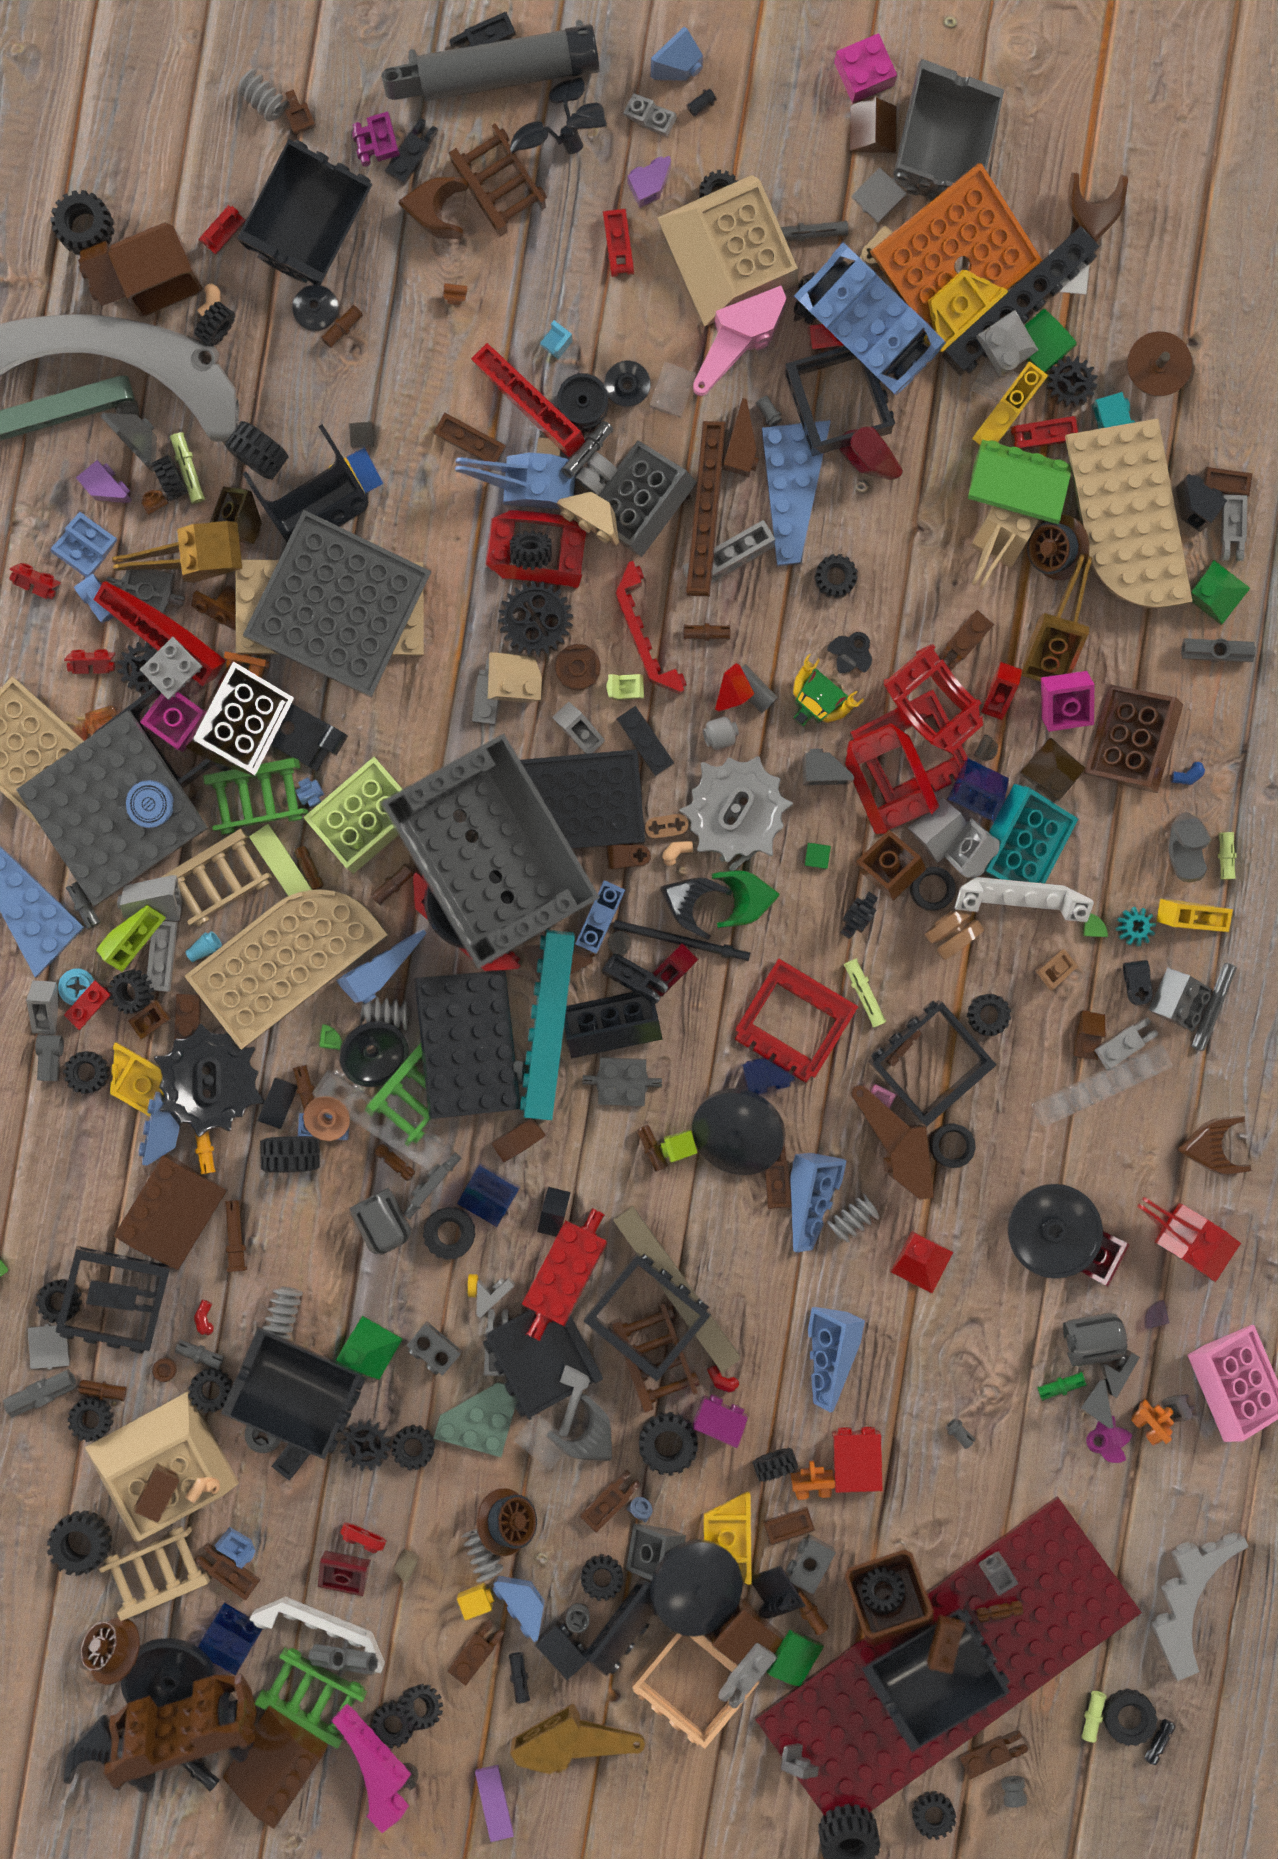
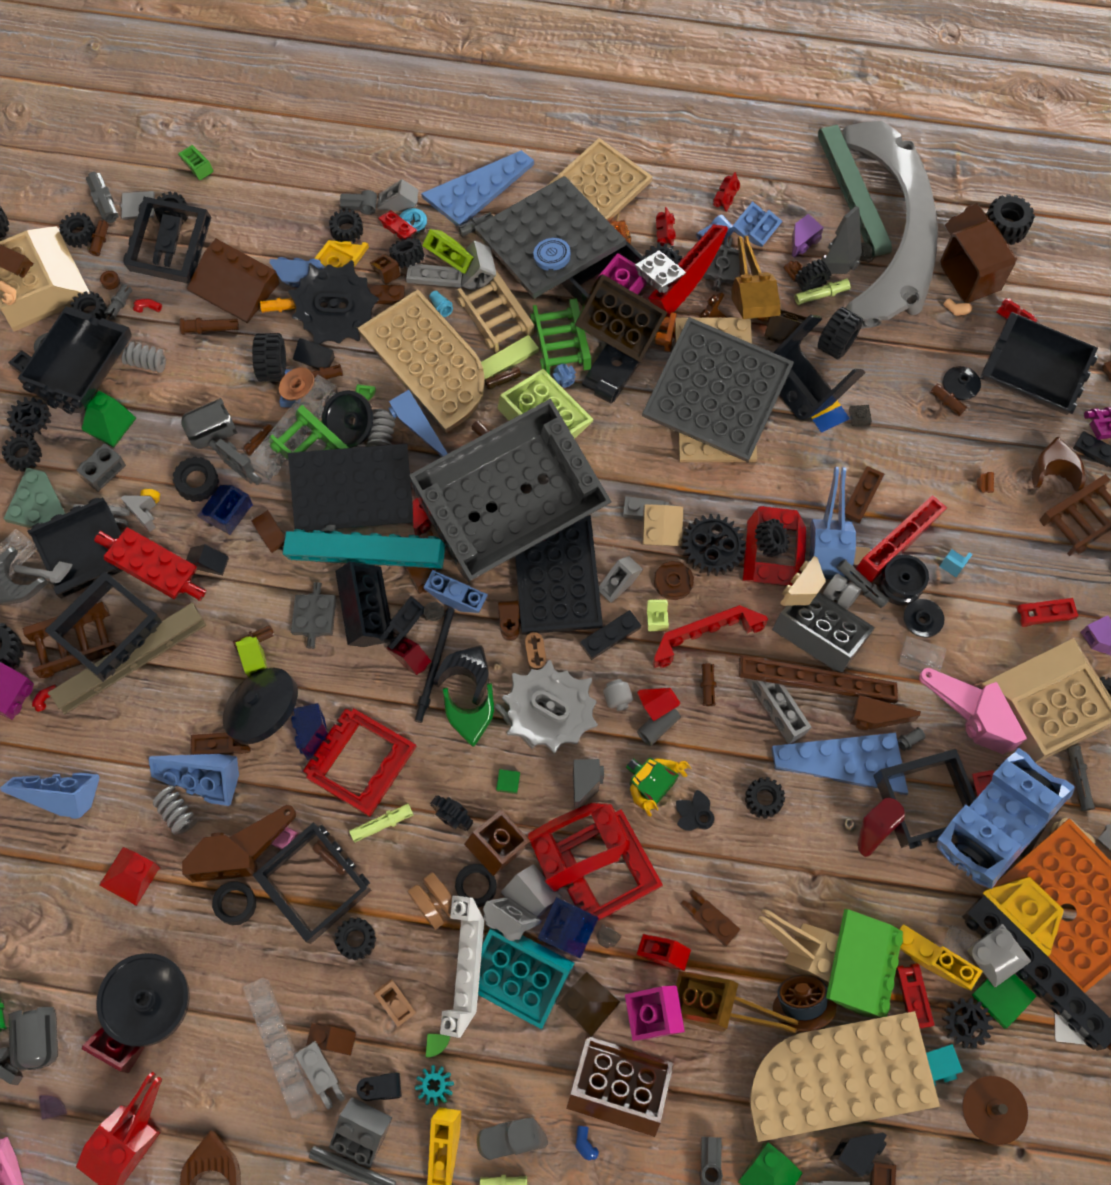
camera: 90 degrees right, 20 degrees down
(214, 324) = (939, 306): black tyre -> none
(674, 849) = (516, 659): light nougat arm -> none
(914, 673) = (676, 864): red wedge -> none

